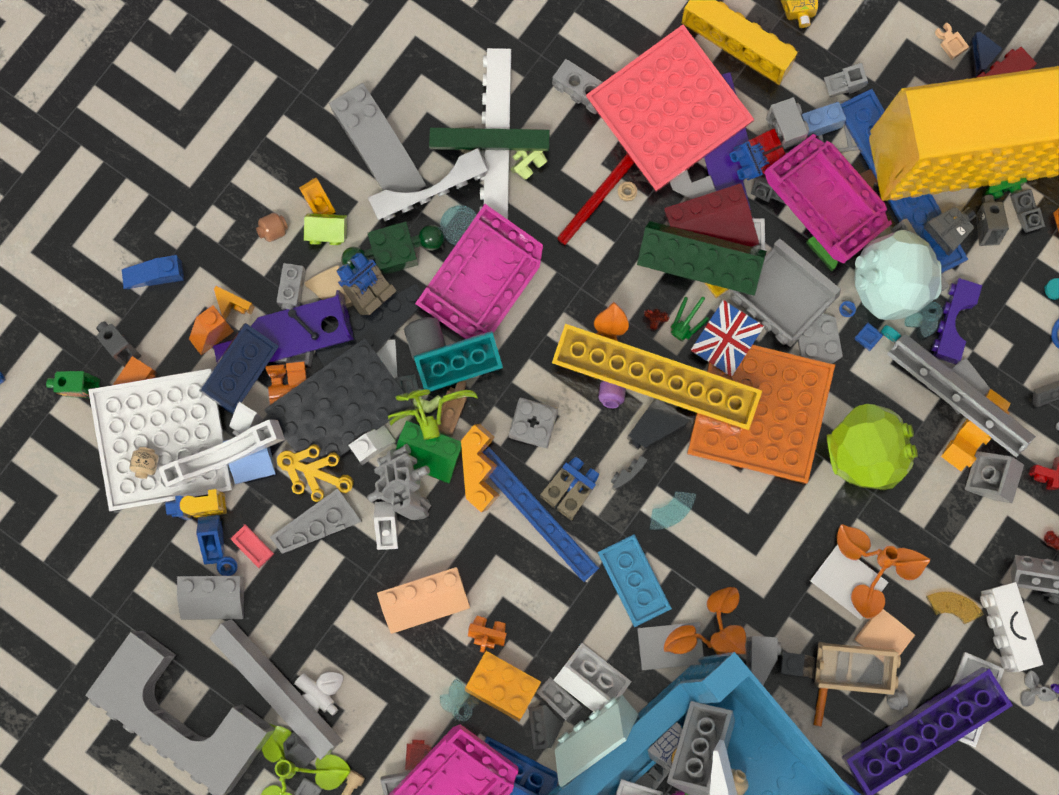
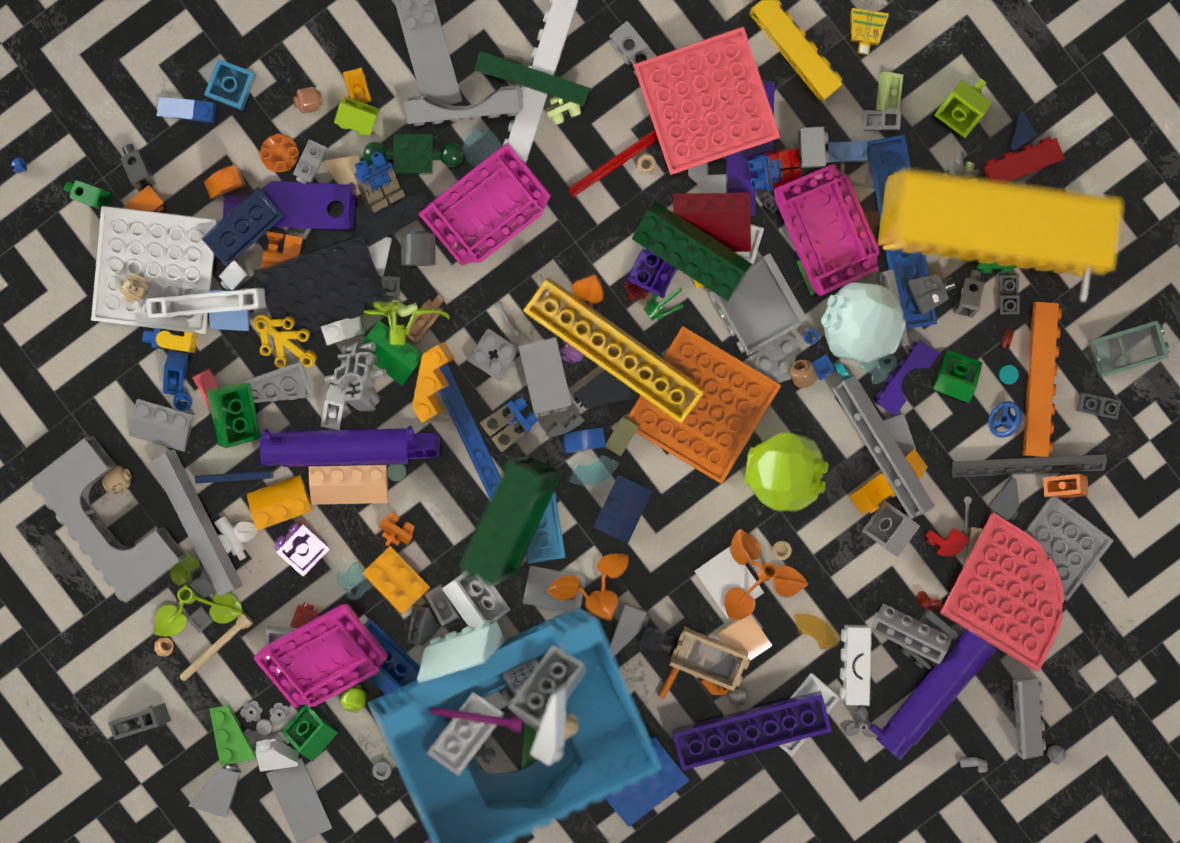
camera: 20 degrees right, 10 degrees up
(179, 669) = (116, 479): none -> tan head
(189, 234) = (230, 84): none -> dark azure brick
(227, 300) = (246, 157): light orange slope -> none
(258, 287) = (279, 153): none -> orange dish
(283, 563) = (233, 414): none -> green slope
(293, 314) = (304, 188): black hinge -> none
(301, 629) = (234, 477): none -> dark blue tile
(357, 642) = (279, 502): none -> light orange slope
(392, 682) = (301, 547): none -> plate
(410, 561) = (347, 447): none -> dark purple piece
(458, 361) = (441, 281): teal slope -> none
(469, 572) = (396, 472): none -> sand green tile
(548, 395) = (499, 305): none -> light grey hinge
(593, 427) = (545, 376): none -> light grey slope
(605, 581) = (510, 520): none -> dark green door
(652, 481) = (584, 440): none -> blue slope
(669, 288) = (651, 273): none -> dark purple slope
(690, 464) = (622, 435): none -> olive tile
(714, 539) = (623, 509): none -> dark blue slope
(727, 338) = (692, 331): sticker -> none
(840, 52) = (889, 91): none -> yellowish green slope
(852, 347) = (803, 373): none -> medium nougat head
(870, 699) = (714, 689): none -> orange arm
(891, 533) = (781, 550): none -> tan plate
(922, 44) = (964, 107): none -> lime piece
(953, 43) = (996, 113): light nougat plate -> none
(1007, 304) = (958, 376): none -> green slope
(1042, 253) = (1007, 339): none -> clear red tile

